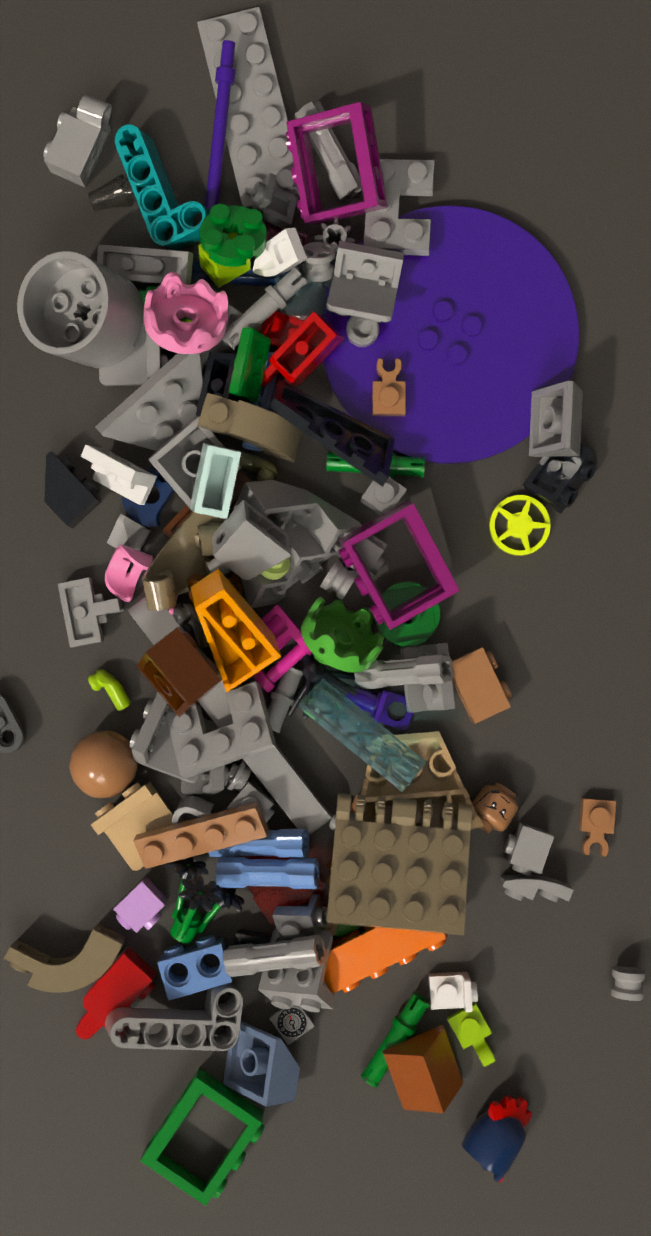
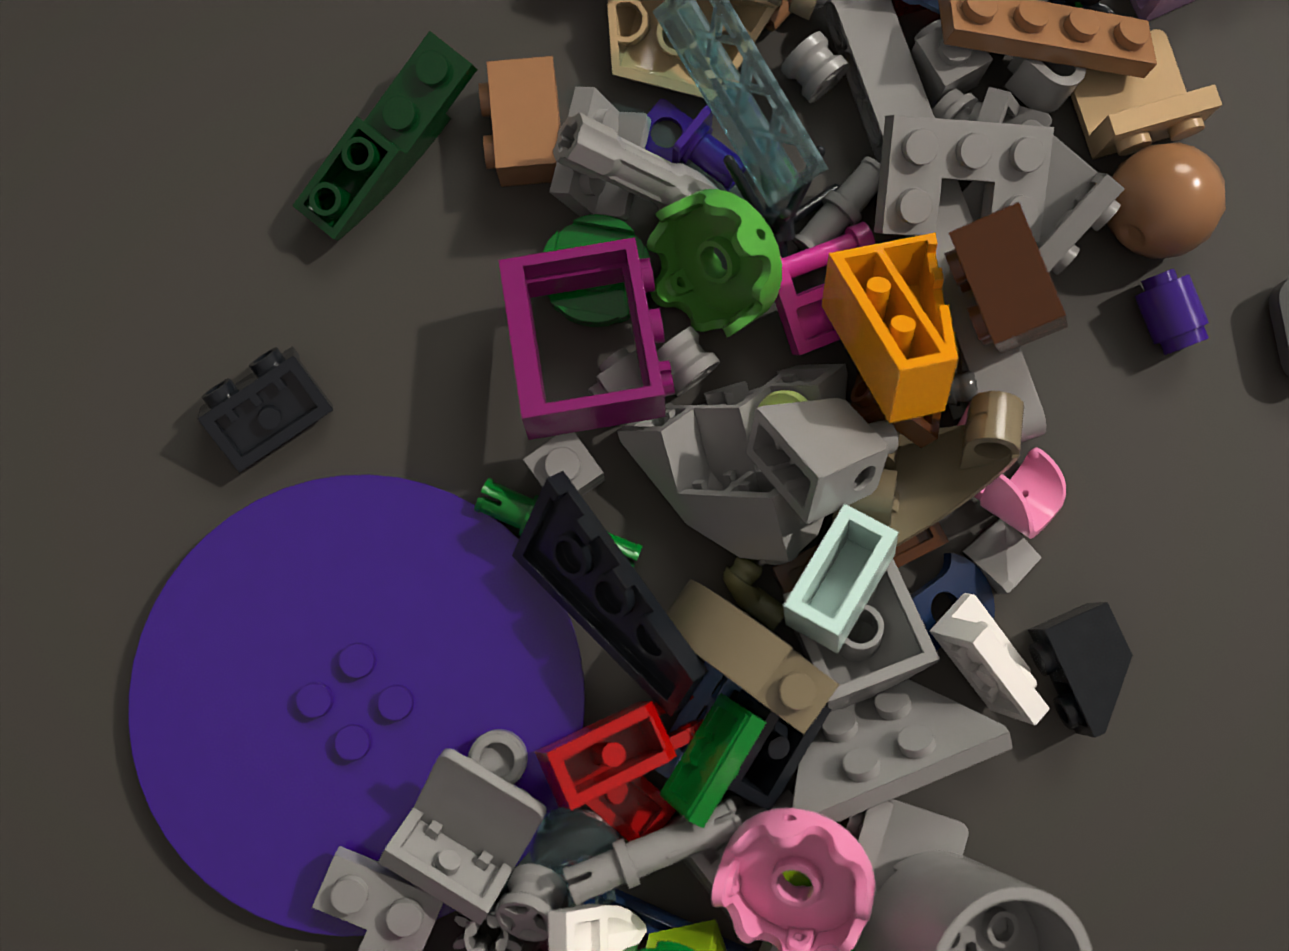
camera: 160 degrees left, 5 degrees down
(78, 705) = (1172, 311): none -> dark purple brick
(85, 611) = (1113, 456): light grey hinge -> none
(112, 686) = (1107, 321): lime arm -> none
(325, 776) = (814, 67): none -> light grey wheel
(388, 394) = (495, 632): medium nougat plate -> none
(520, 525) = (363, 350): neon yellow wheel -> none
(551, 646) = (389, 142): none -> dark green slope
(556, 420) = (239, 487): light grey slope -> none

